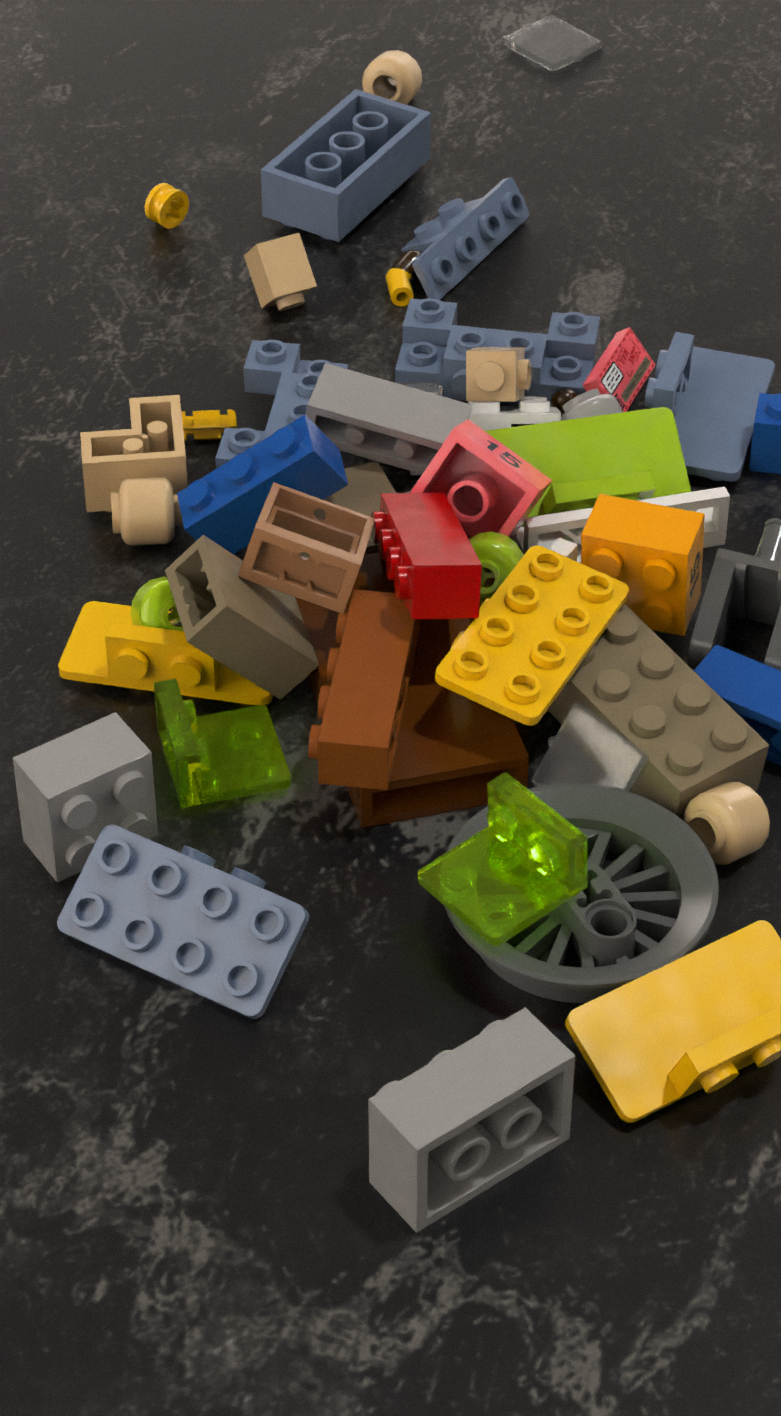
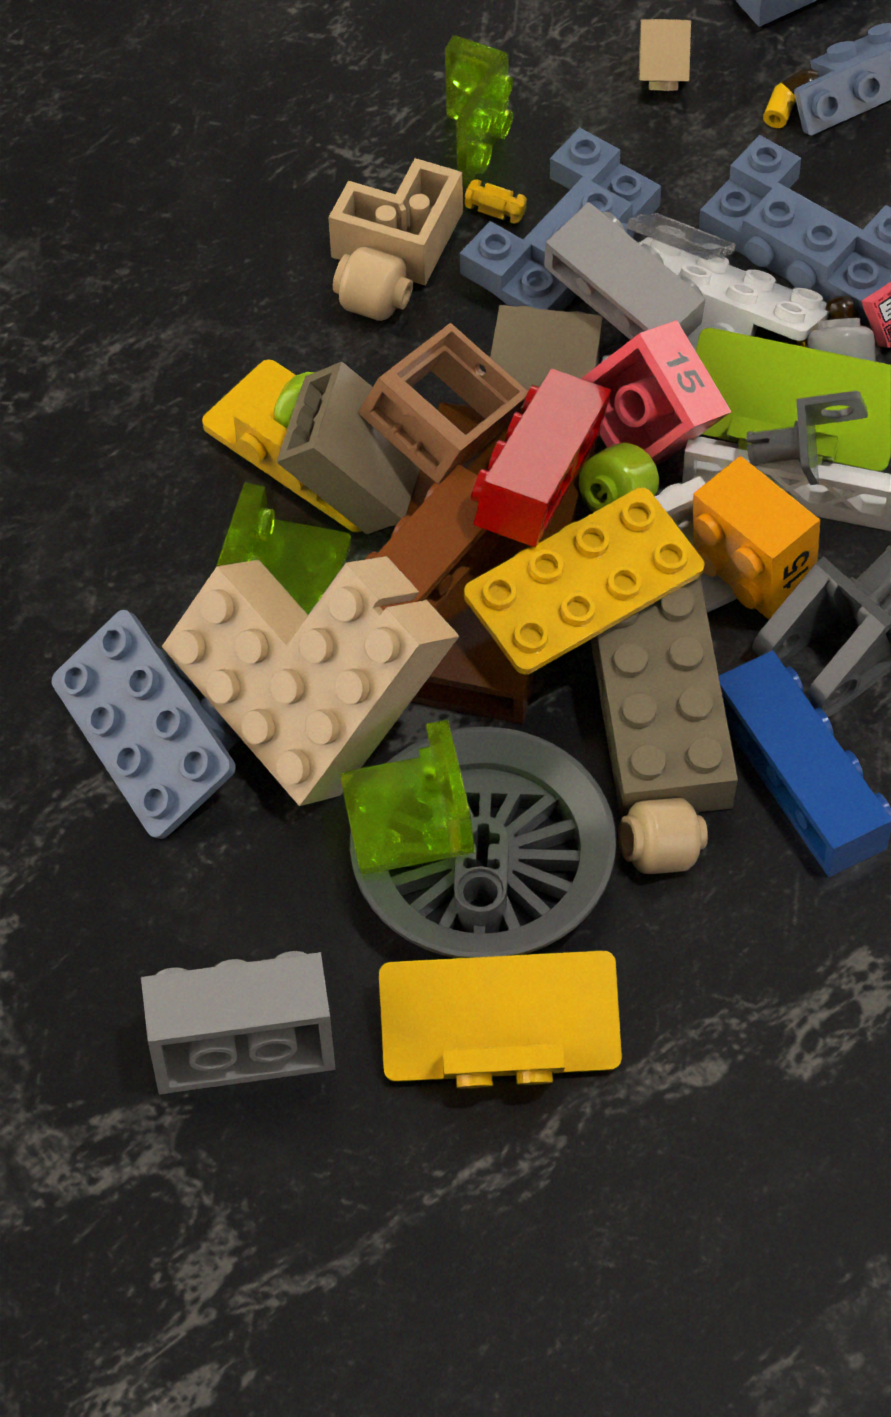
camera: 30 degrees right, 15 degrees up
(80, 787) = (128, 565): light grey brick -> none
(143, 341) = (478, 100): none -> clear neon green bracket
(232, 496) = (486, 303): blue brick -> none
(342, 822) = (312, 687): none -> tan piece
(497, 374) = (773, 260): tan brick -> none
(589, 753) = (579, 718): clear piece -> none
(631, 475) = (800, 440): none -> dark grey bracket

